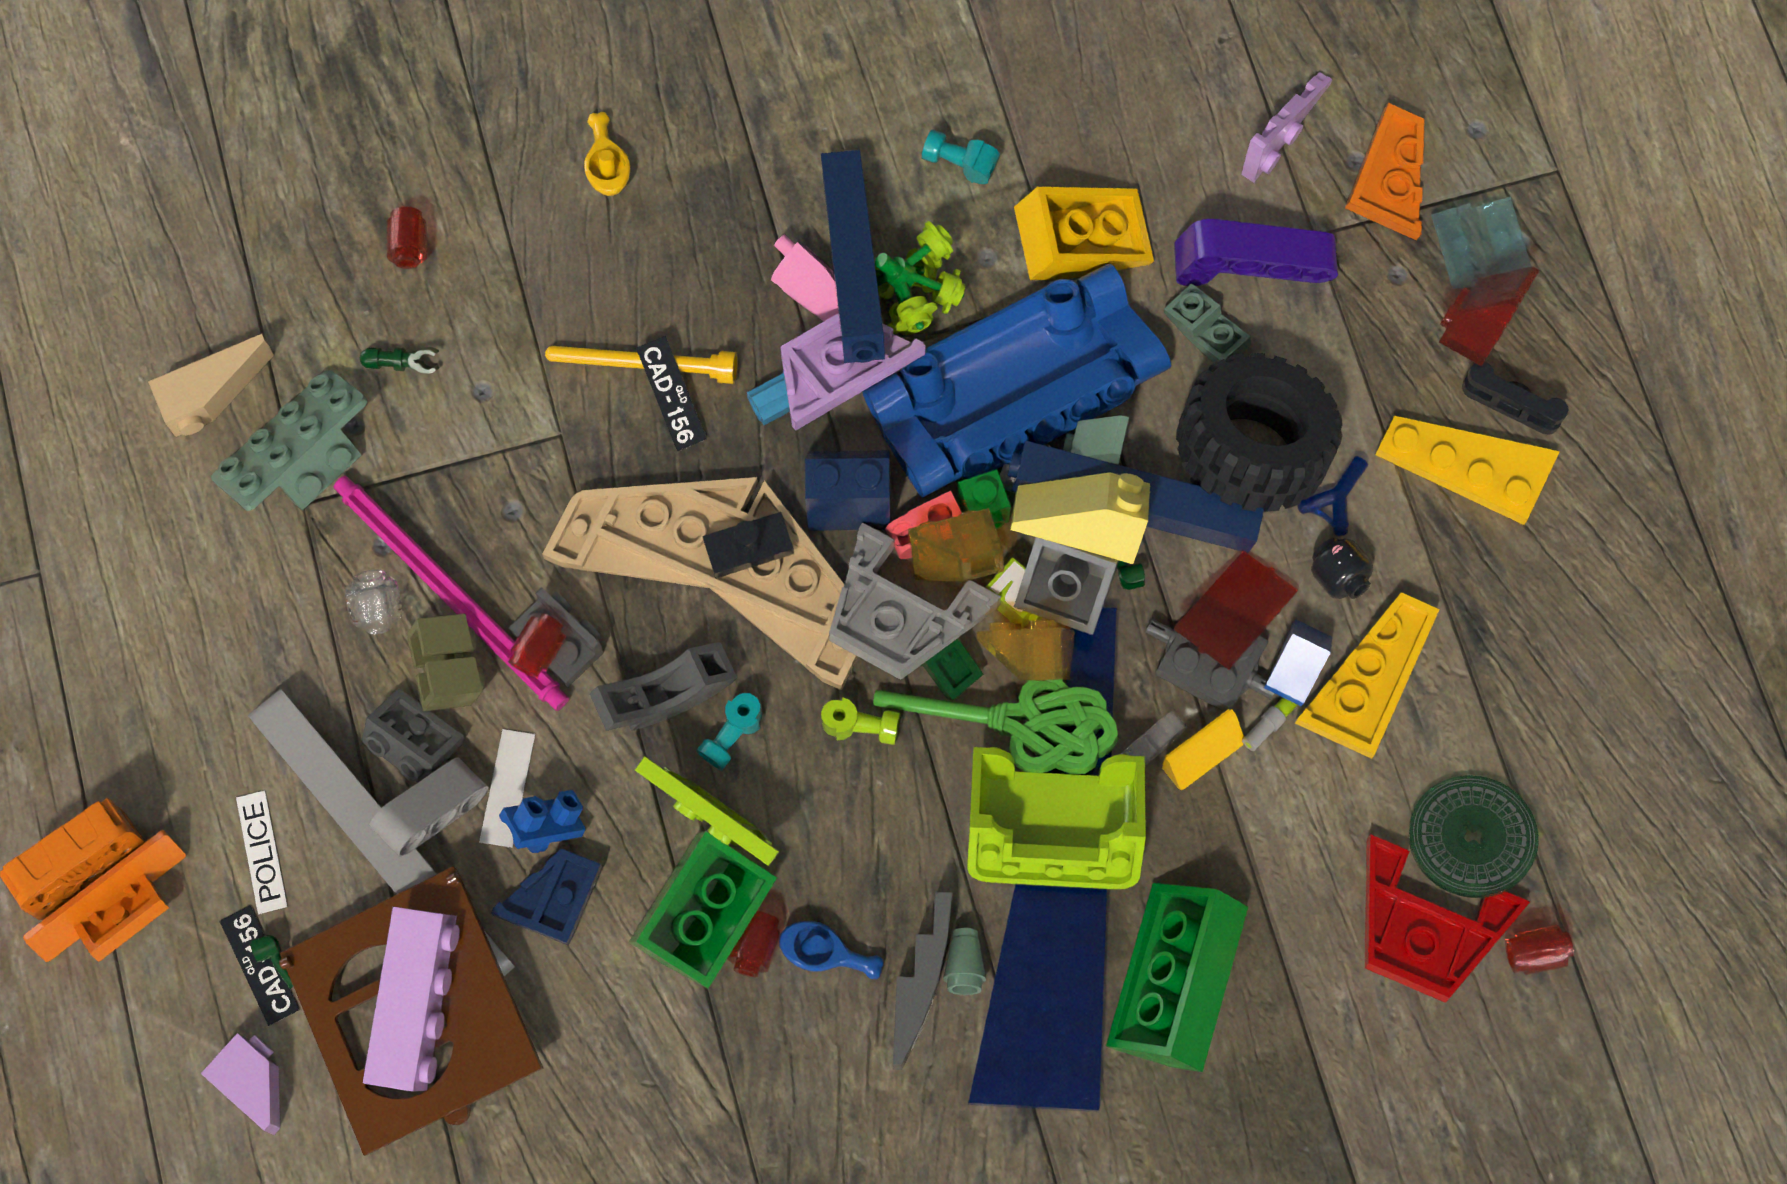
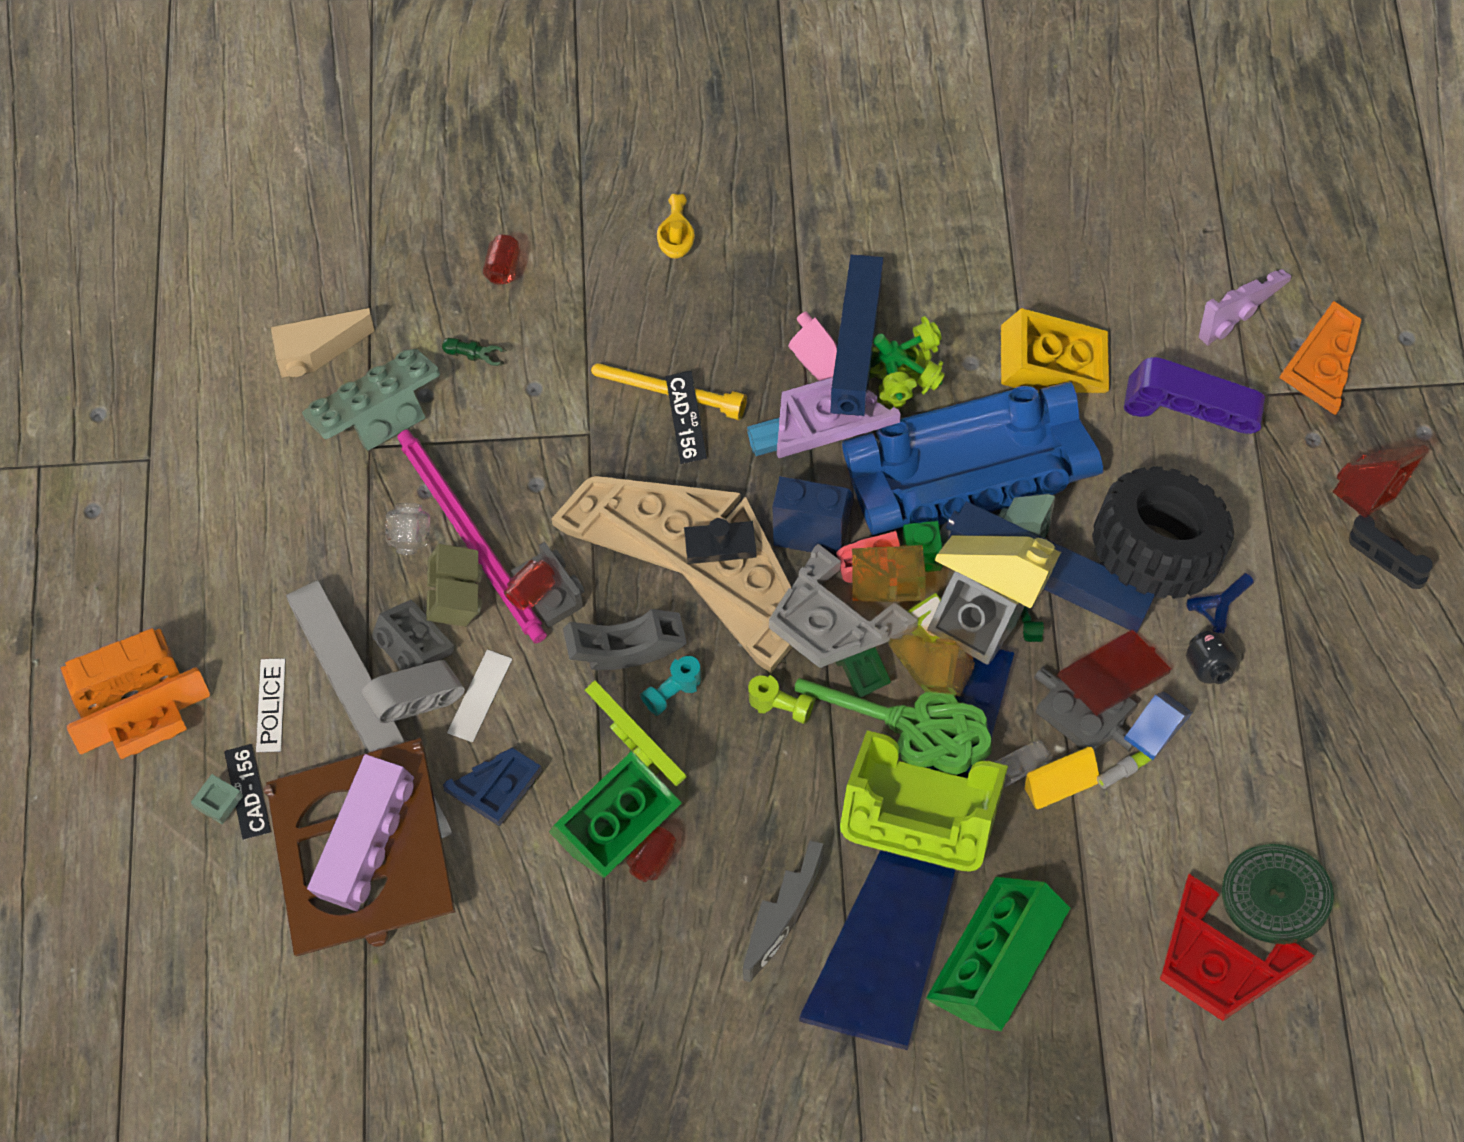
camera: 15 degrees right, 10 degrees down
(226, 985) = (217, 799): none -> sand green plate
(248, 1080) = (216, 873): lavender slope -> none
(269, 948) = (255, 777): dark green hand -> none
(541, 822) = (499, 723): blue hips -> none
(819, 948) = (704, 869): blue piece -> none
(964, 964) = (821, 908): sand green cone -> none
(976, 159) = (978, 284): teal leg -> none
(1204, 325) = (1139, 445): sand green slope -> none
(1368, 685) = (1213, 757): yellow wing -> none
(1476, 466) = (1349, 603): yellow wing -> none
(1480, 241) = (1388, 422): clear light blue slope -> none
(1539, 950) = (1313, 995): clear red brick -> none

